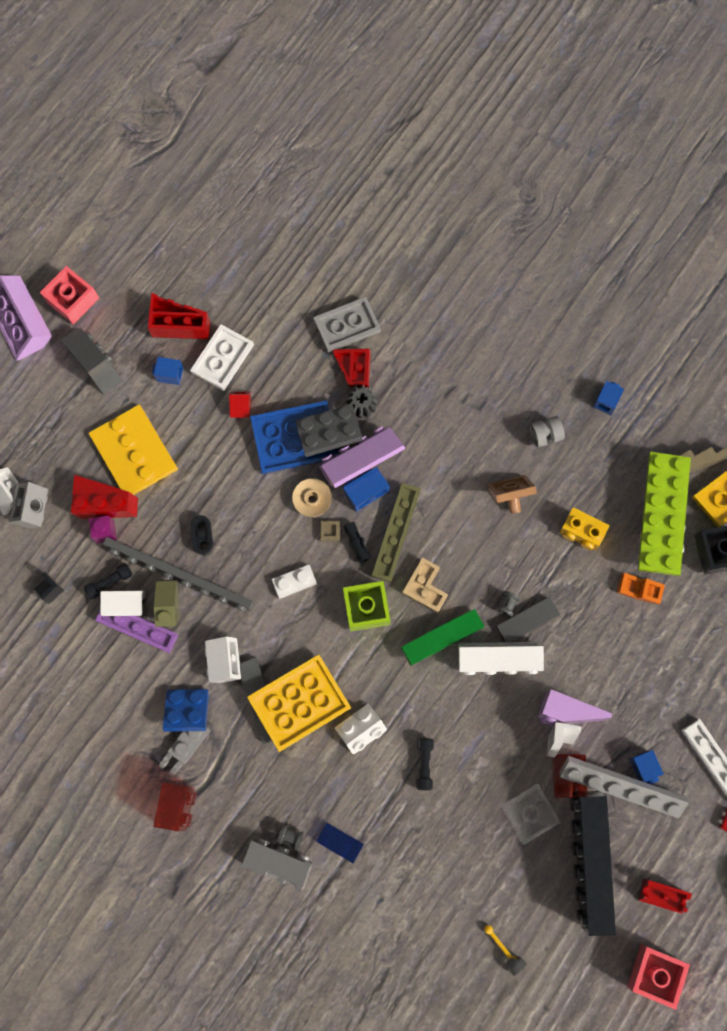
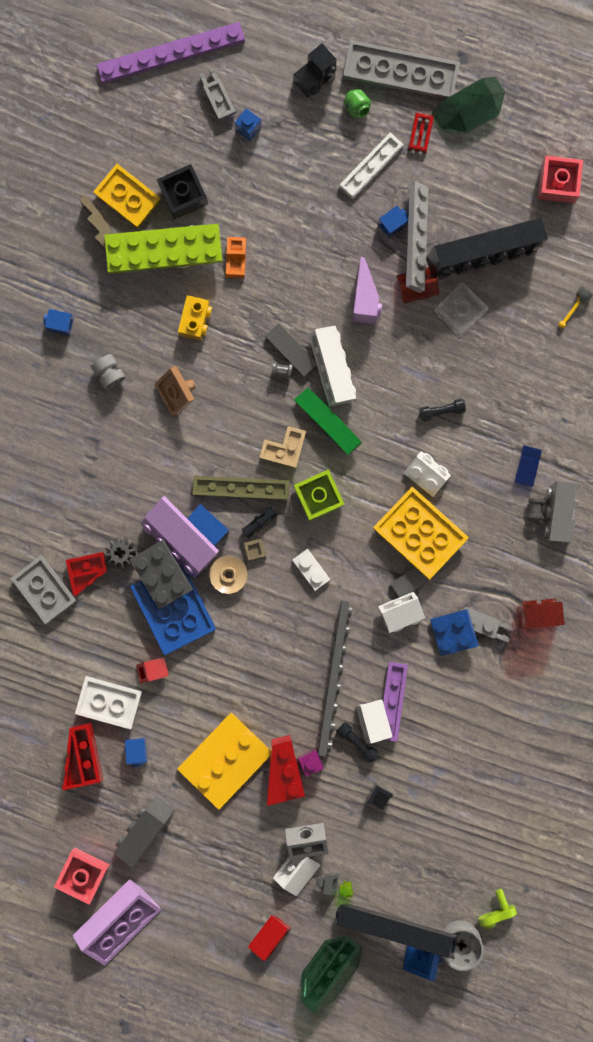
camera: 115 degrees left, 10 degrees up
(166, 603) = (365, 679): olive slope -> none
(202, 536) = (290, 667): black plate -> none
(561, 734) = (391, 301): white panel -> none
(664, 896) = (494, 187): red hinge -> none

